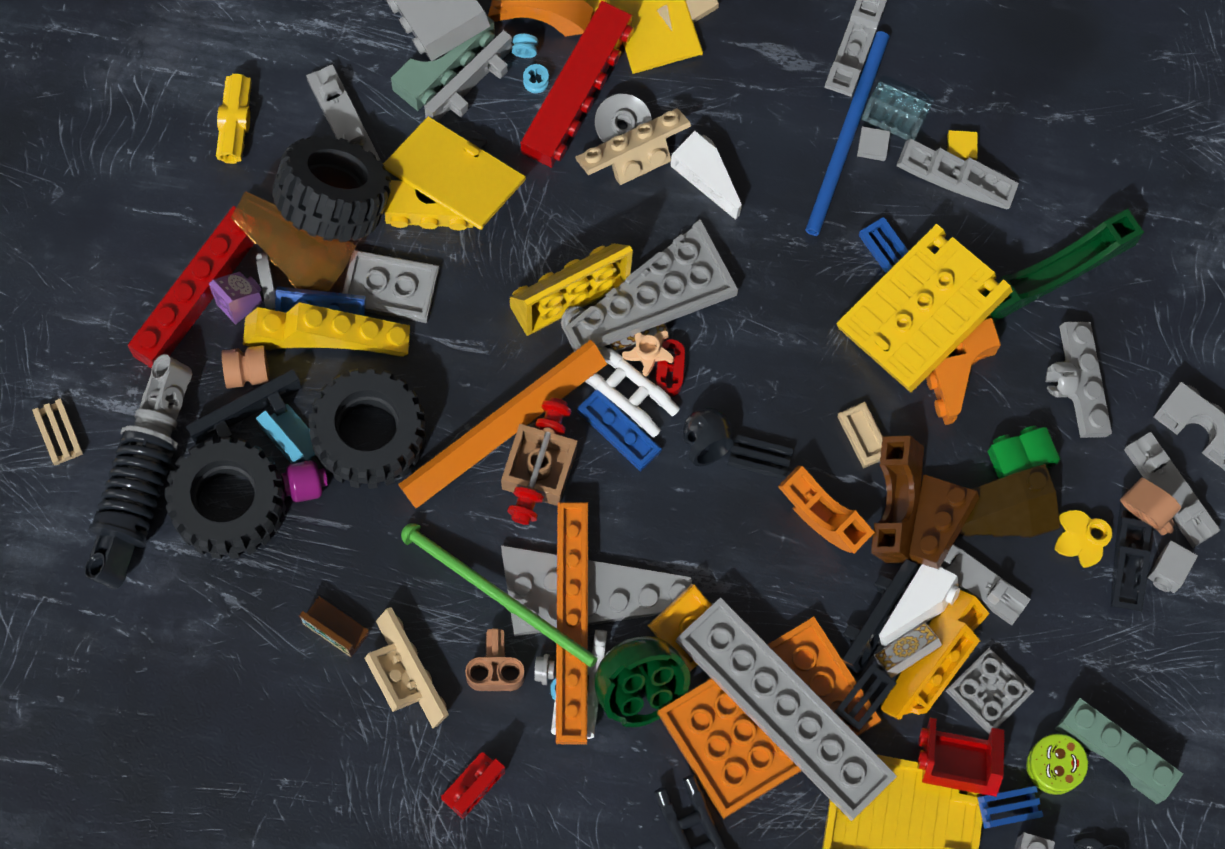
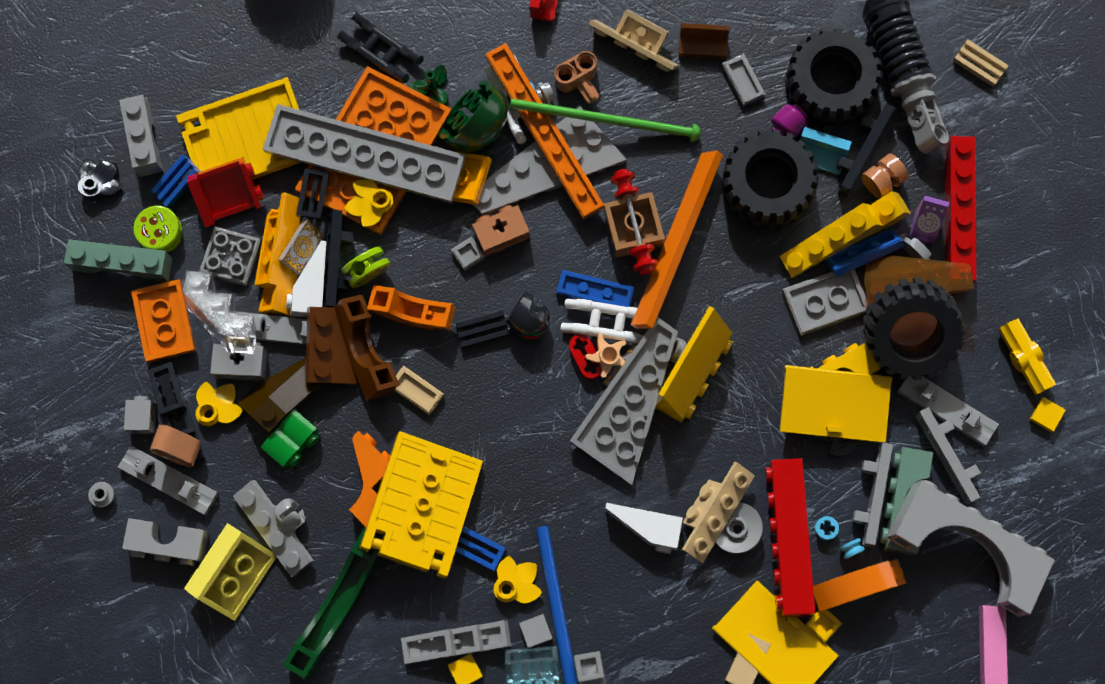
camera: 160 degrees right, 5 degrees up
(253, 59) = (1047, 414): none -> yellow tile
(318, 562) = (743, 80): none -> light grey tile
(376, 49) = (947, 456): none -> light grey hinge
(661, 741) = (434, 80): none -> dark green plant
(697, 543) = (491, 239): none -> nougat brick
(729, 545) = (468, 253): none -> light grey tile
(813, 652) = (366, 204): none -> yellow plate
(850, 582) = (364, 267): none -> lime head
(862, 197) = (520, 580): none -> yellow plate
(1038, 620) = (218, 313): none -> clear brick
(1053, 565) = (252, 368): none -> light grey brick
(1098, 658) = (163, 321): none -> orange plate
(1151, 360) = (230, 572): none -> light yellow slope

